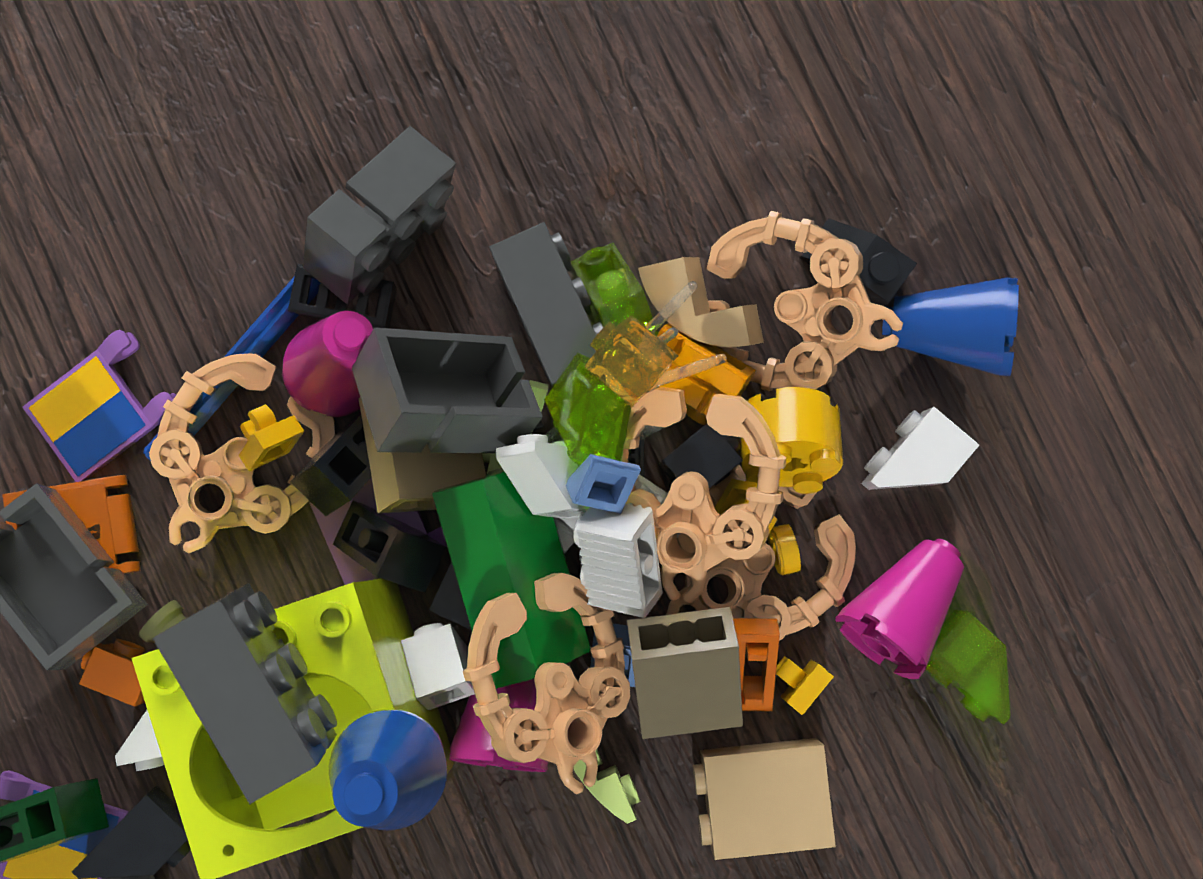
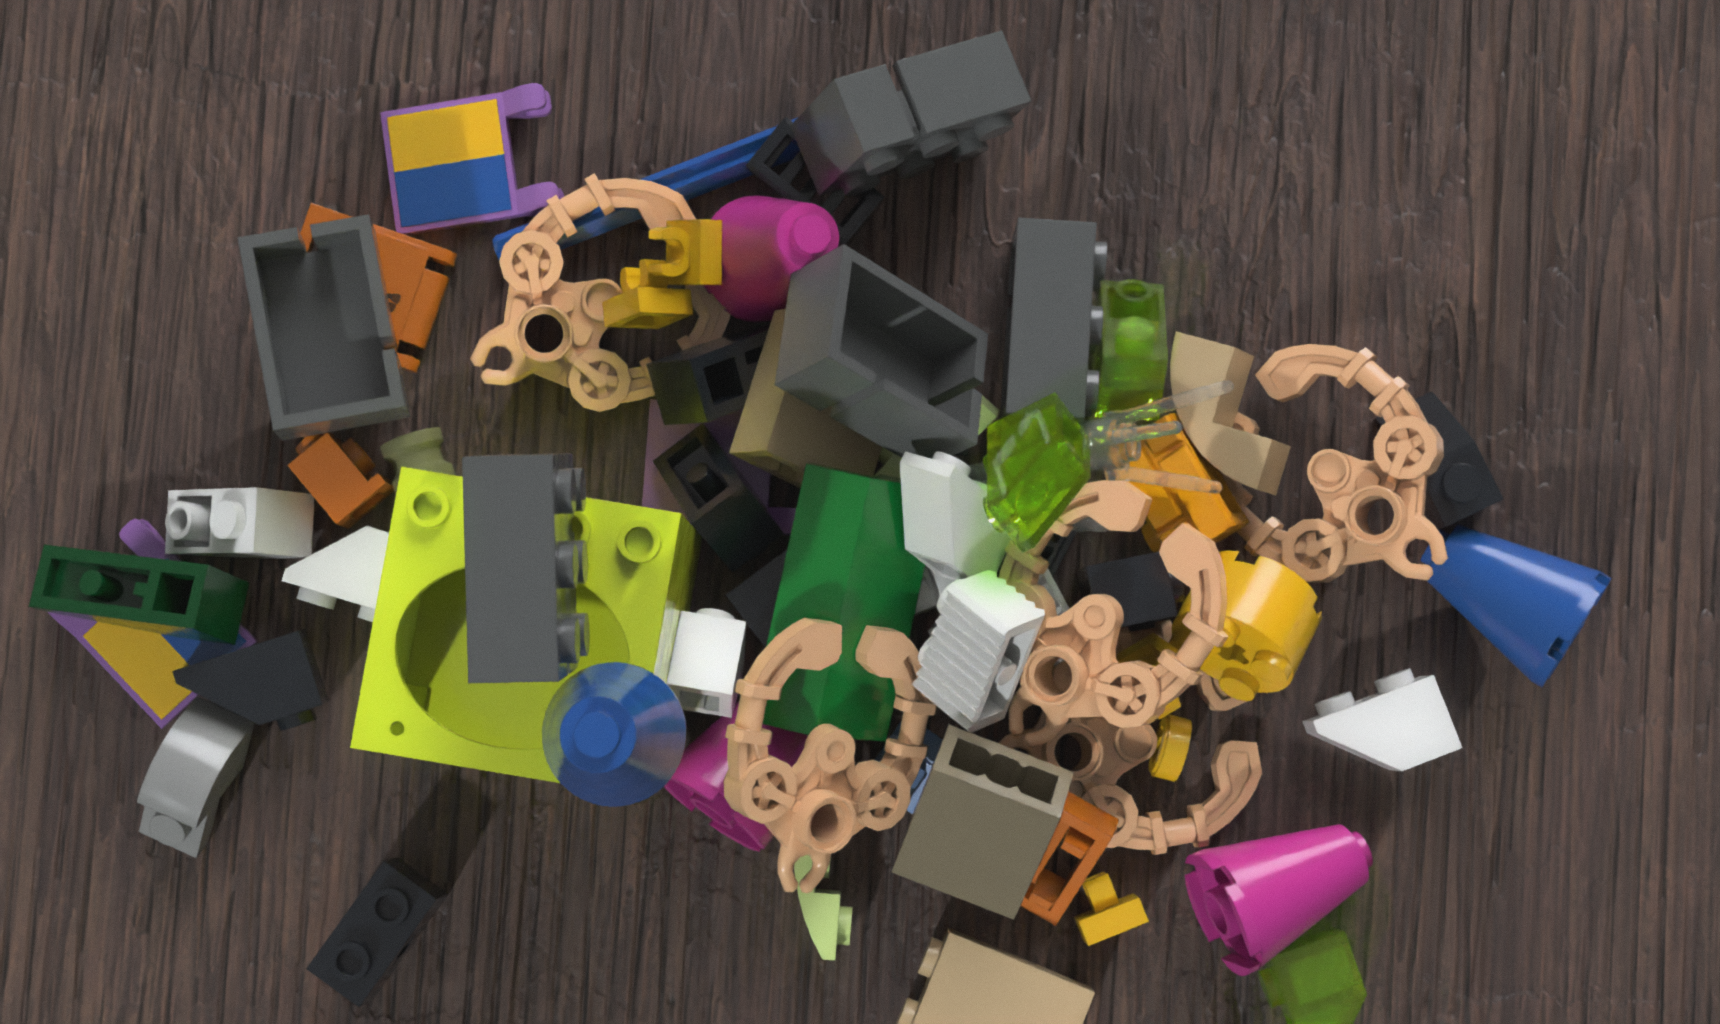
camera: 30 degrees right, 0 degrees up
(69, 740) = (239, 523): none -> white slope
(280, 389) = (691, 252): none -> yellow tile
(602, 483) = (1005, 554): medium blue slope -> none
(629, 359) = (1110, 432): clear yellow brick -> none

